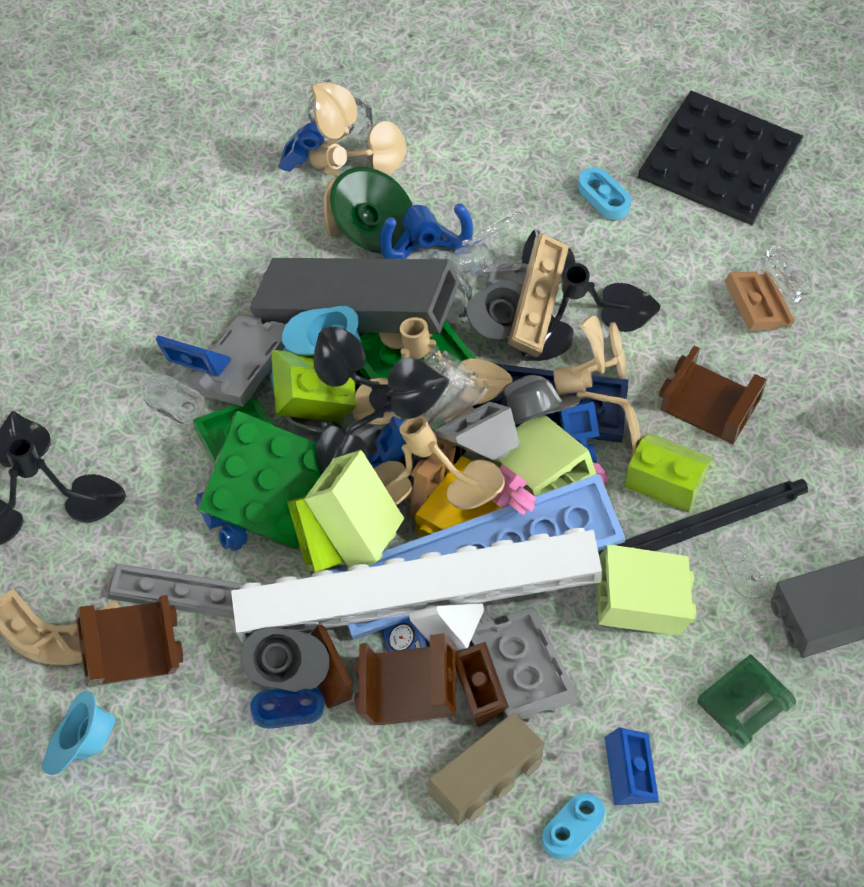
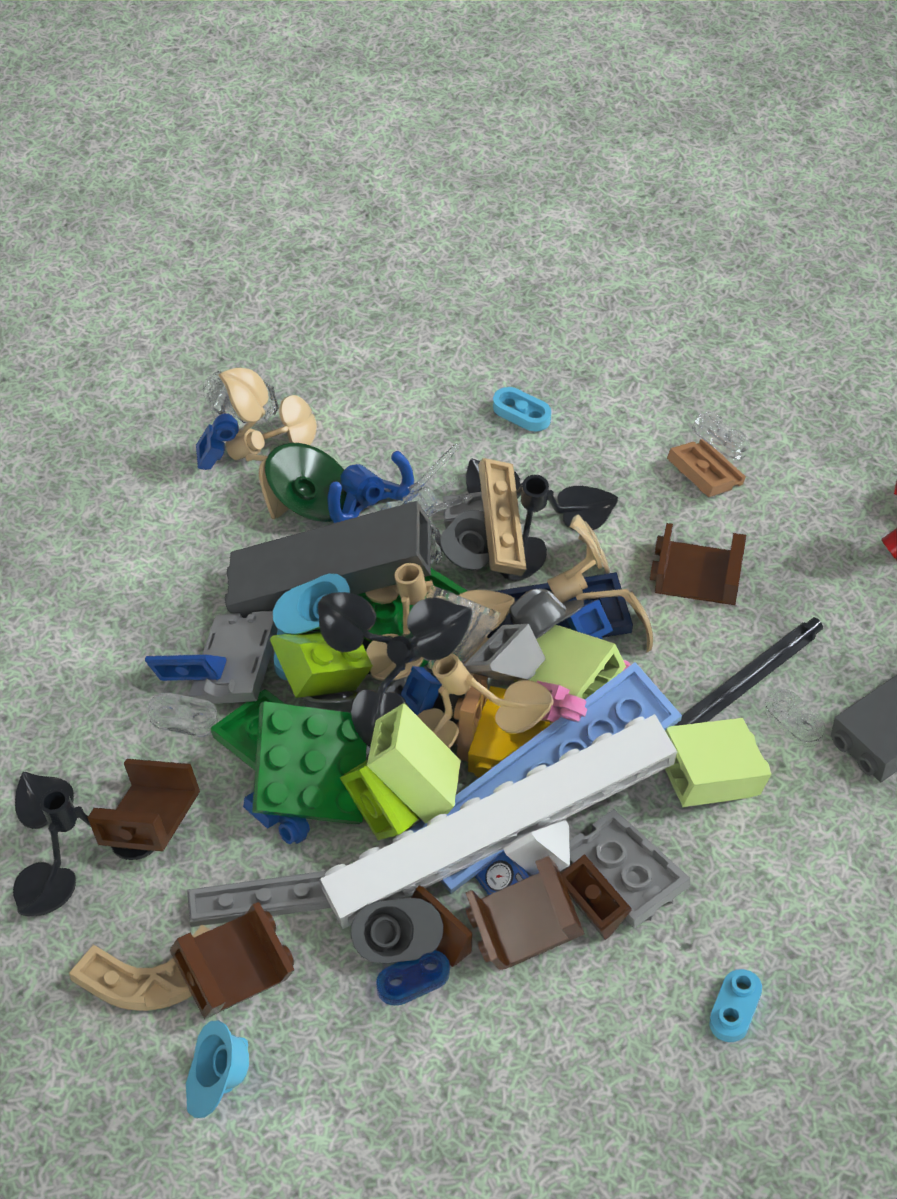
camera: 15 degrees left, 5 degrees down
(108, 480) = (151, 807): none -> reddish brown panel
(486, 769) = (633, 977): dark tan brick -> none
(631, 767) = (766, 933): blue slope -> none
(667, 471) = (688, 648): lime slope -> none
(721, 157) = (615, 348): black plate -> none
(737, 692) = (838, 829): clear green plate -> none

